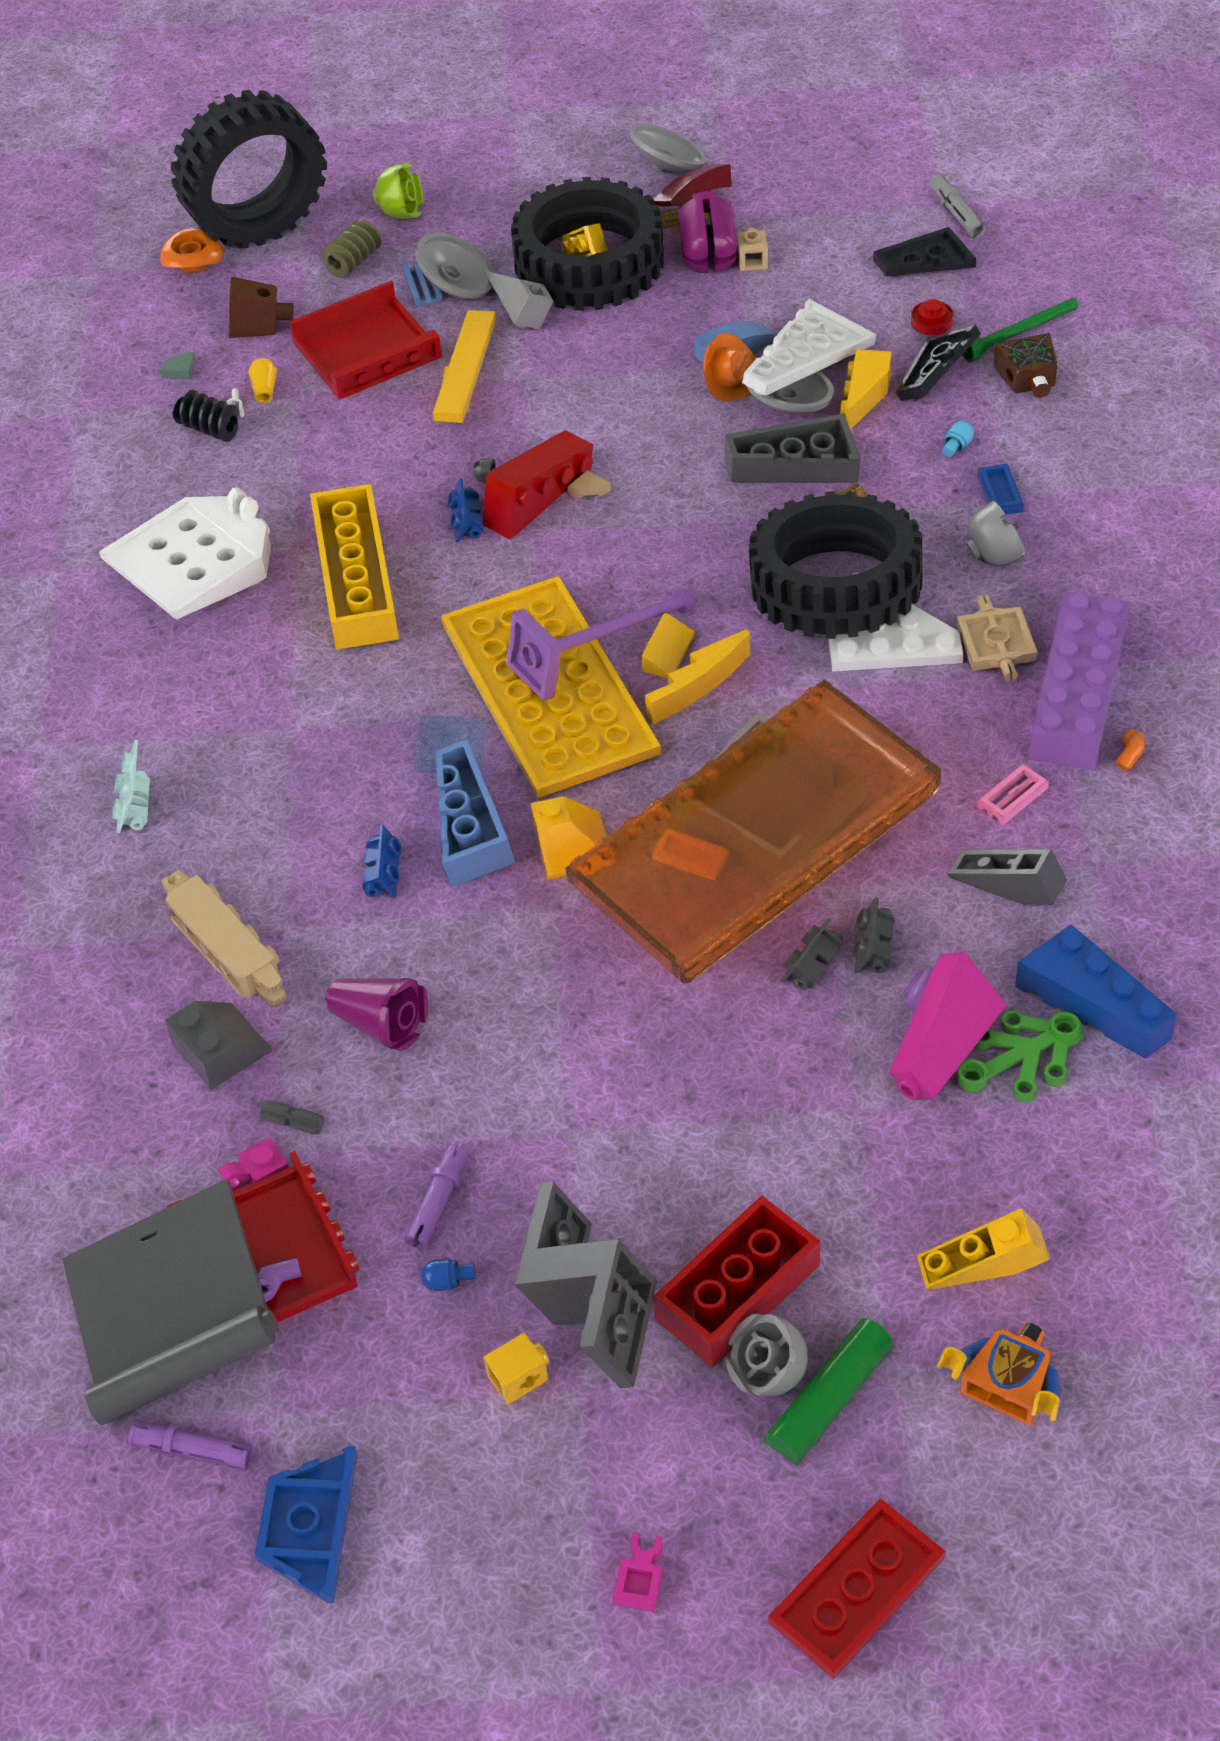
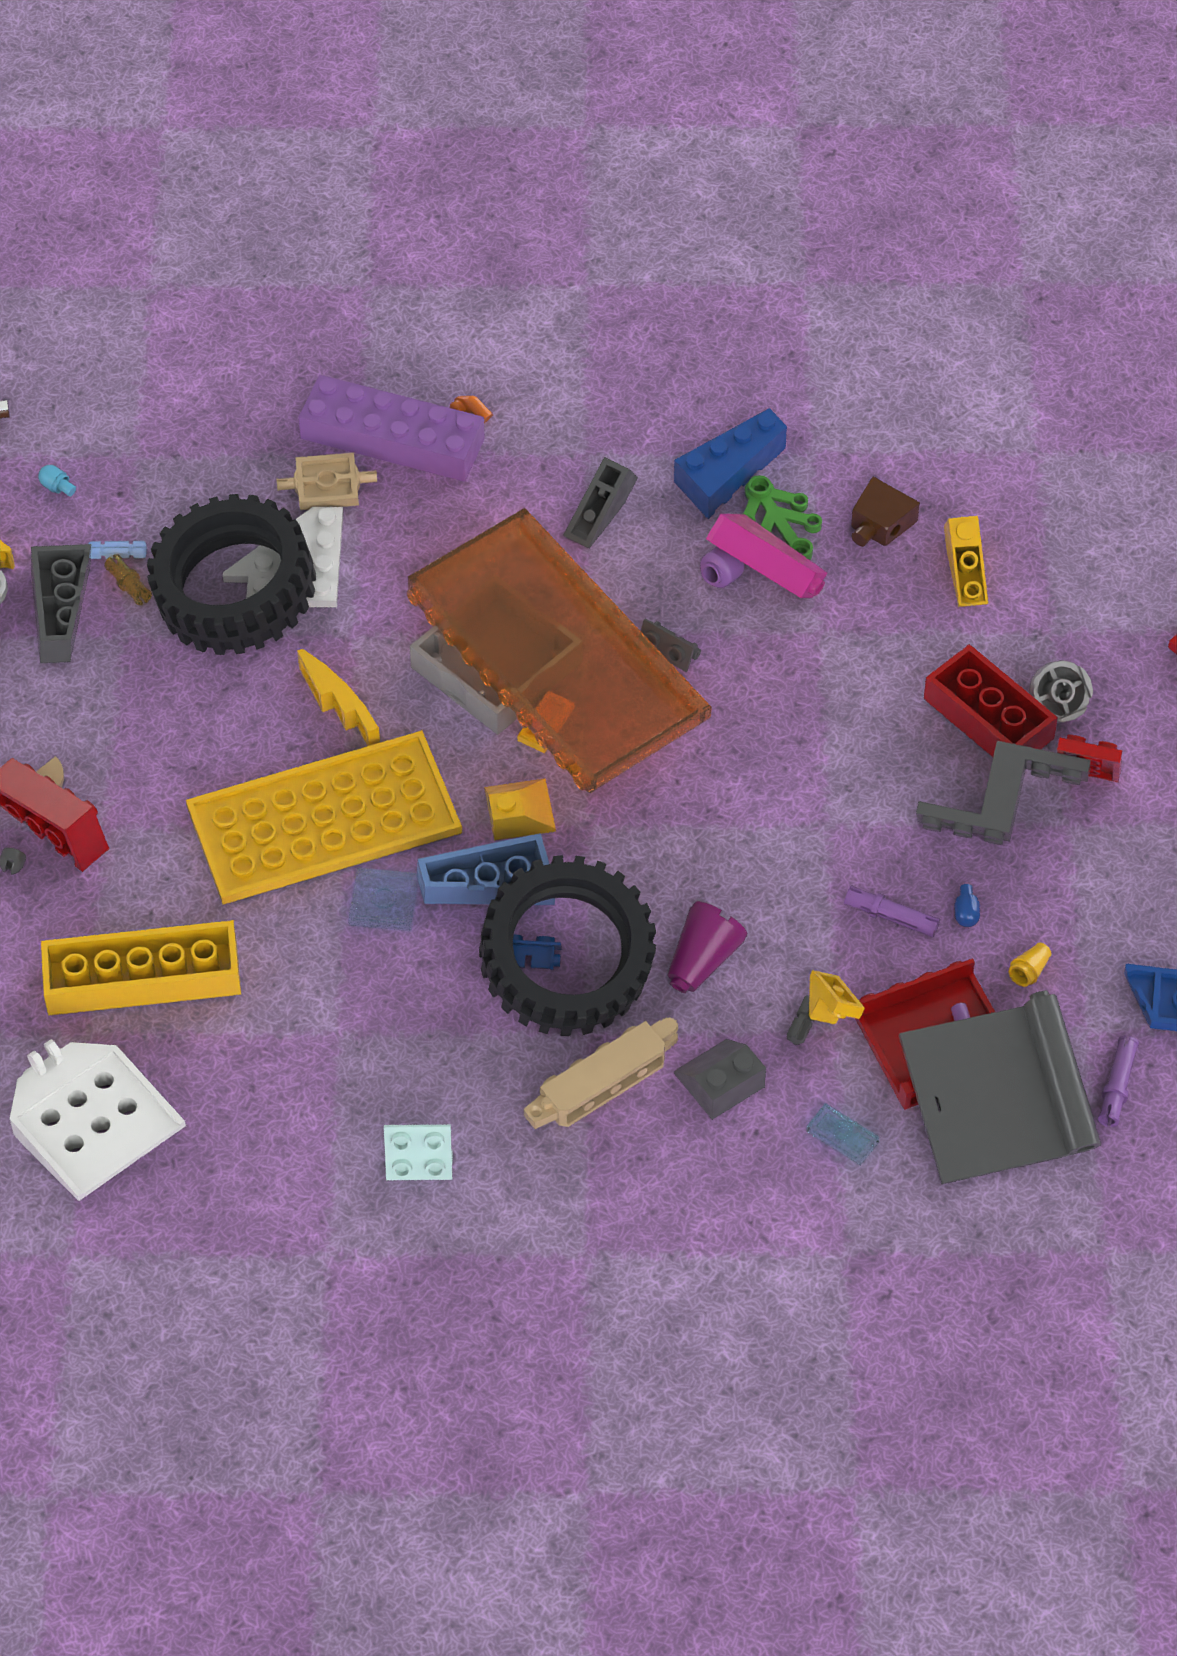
camera: 90 degrees left, 5 degrees up
(140, 1162) = (842, 1134): none -> clear light blue plate
(254, 1164) = (852, 1043): dark pink plate -> none
(303, 1130) = (831, 999): none -> yellow slope
(323, 827) = (577, 882): none -> black tyre
(360, 1342) = (1028, 966): none -> yellow cone
(465, 512) = (69, 882): blue hinge -> none
(517, 1367) = (1057, 858): yellow brick -> none
(536, 654) = (311, 803): medium lavender tile -> none
(629, 1371) = (1104, 757): none -> red plate
(667, 647) = (290, 725): yellow slope -> none
(829, 1390) = (1047, 647): green brick -> none
(872, 926) = (654, 603): dark grey hinge -> none
(876, 485) = (122, 548): none -> light blue axle
(994, 537) = (206, 462): light grey cylinder -> none
(1000, 487) = (130, 459): blue tile -> none
(1008, 1373) = (1073, 552): torso -> none
(1039, 784) = (487, 484): bright pink tile -> none
(1044, 1155) = (882, 514): none -> reddish brown torso

